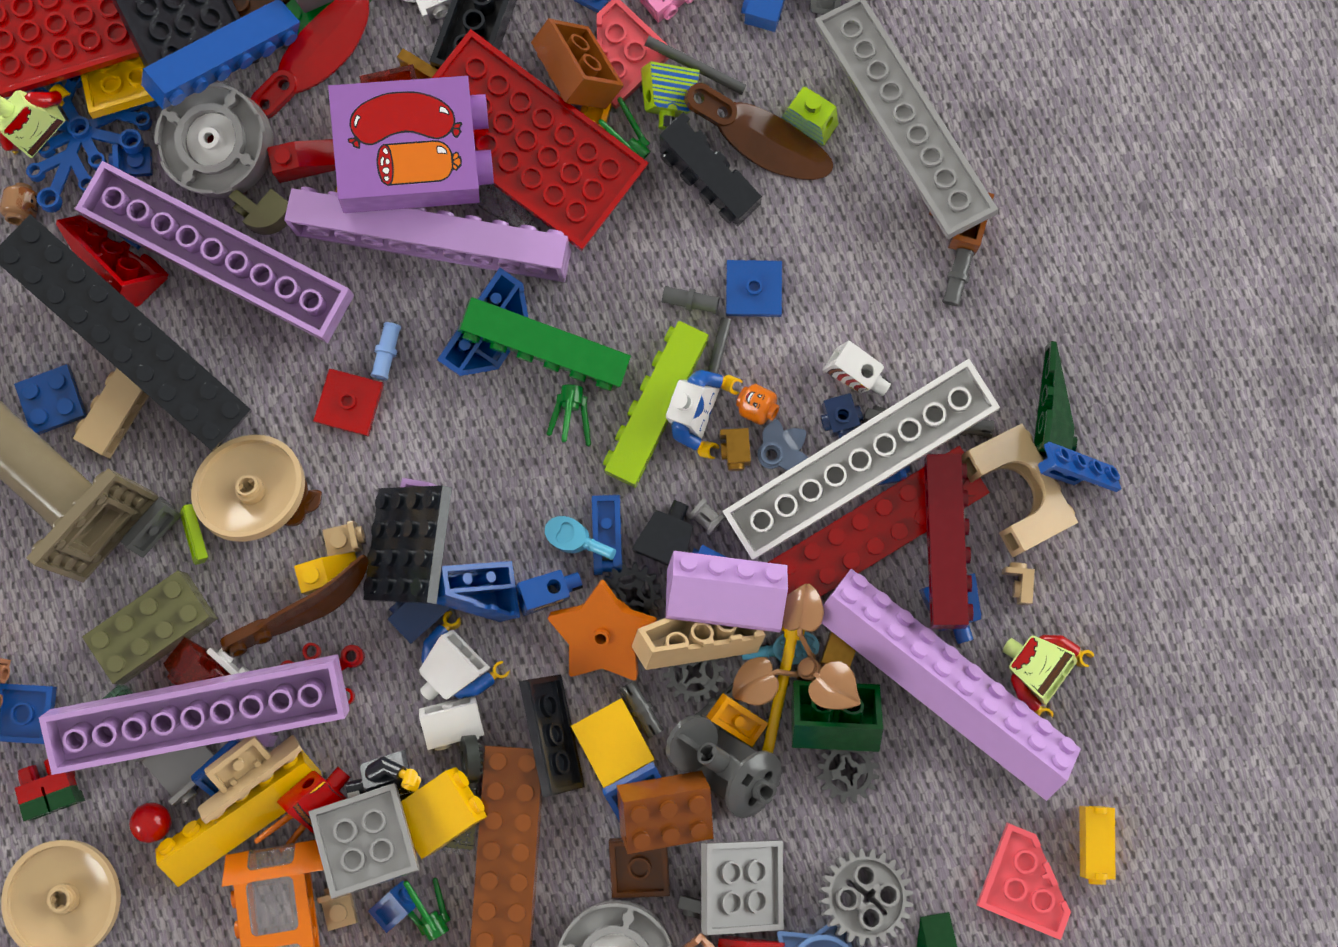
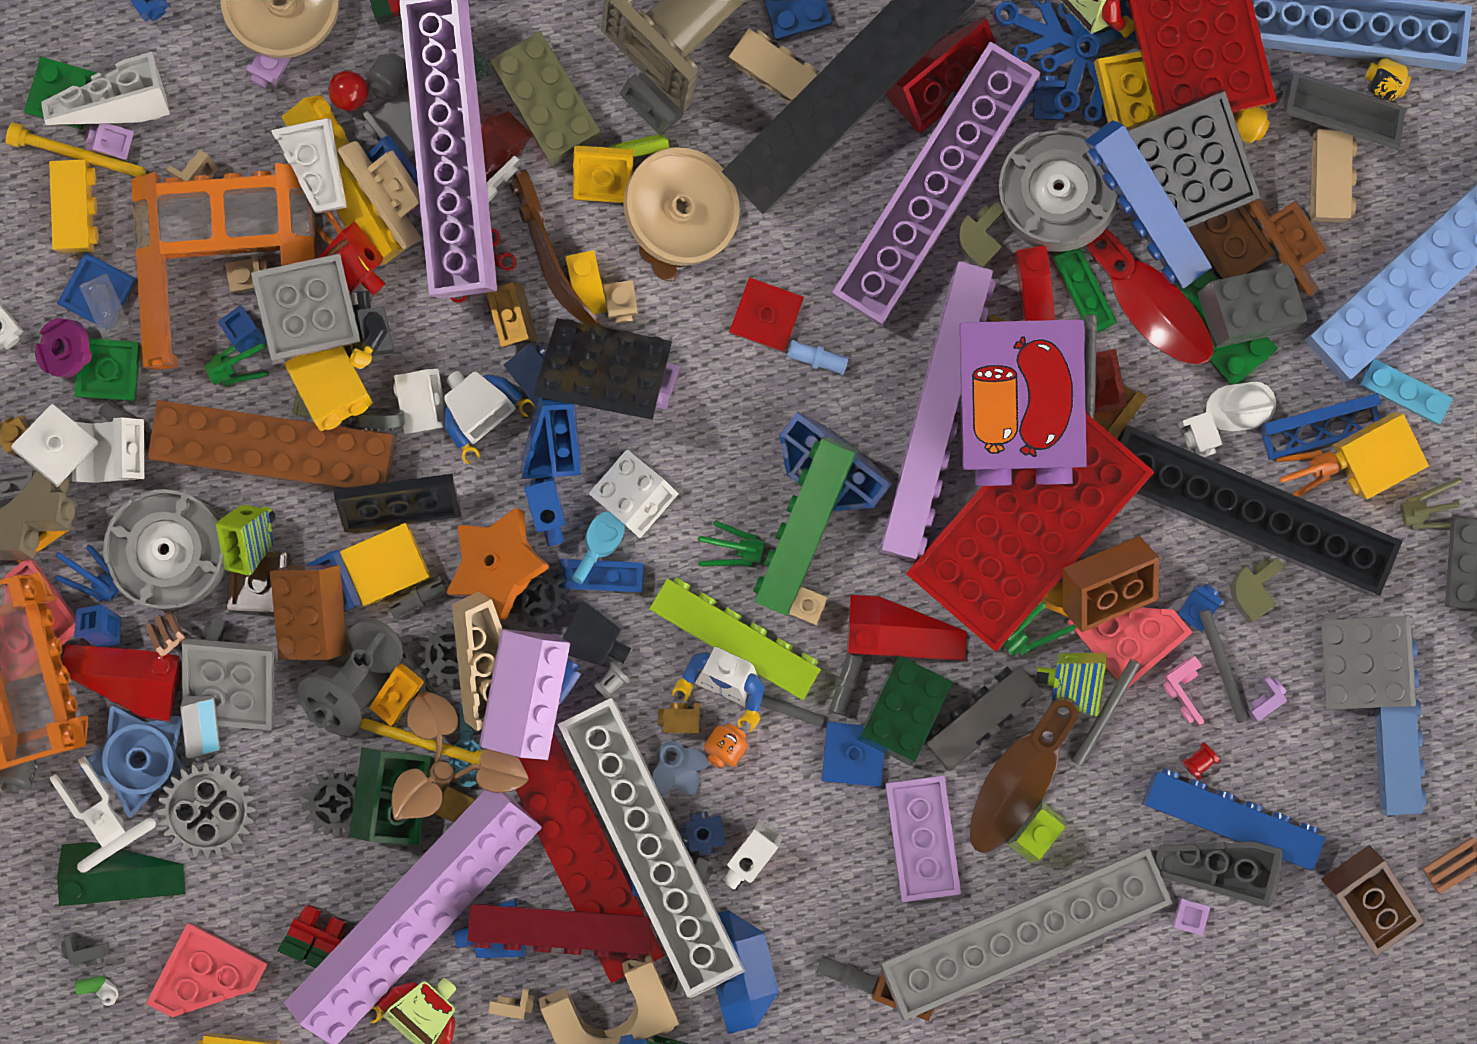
camera: 85 degrees right, 5 degrees up
(133, 784) = (387, 75): none -> dark grey head
(134, 907) = (266, 70): none -> lavender bracket
(216, 847) = (314, 159): none -> white wing
(220, 566) = (601, 173): none -> yellow plate
(302, 120) = (1083, 287): none -> green tile
(362, 642) = (511, 315): none -> pearl gold panel
(525, 511) = (633, 493): none -> white bracket
(597, 883) = (245, 537): none -> lime torso
(620, 336) = (808, 606): none -> tan bracket
(635, 264) = (892, 629): none -> red wedge
(709, 242) = (904, 710): none -> dark green brick
(785, 911) = (199, 725): none -> light grey slope
(825, 219) = (923, 838): none -> lavender plate
(975, 790) = (303, 933): none -> red hips
(992, 363) = (751, 993): none -> blue wedge

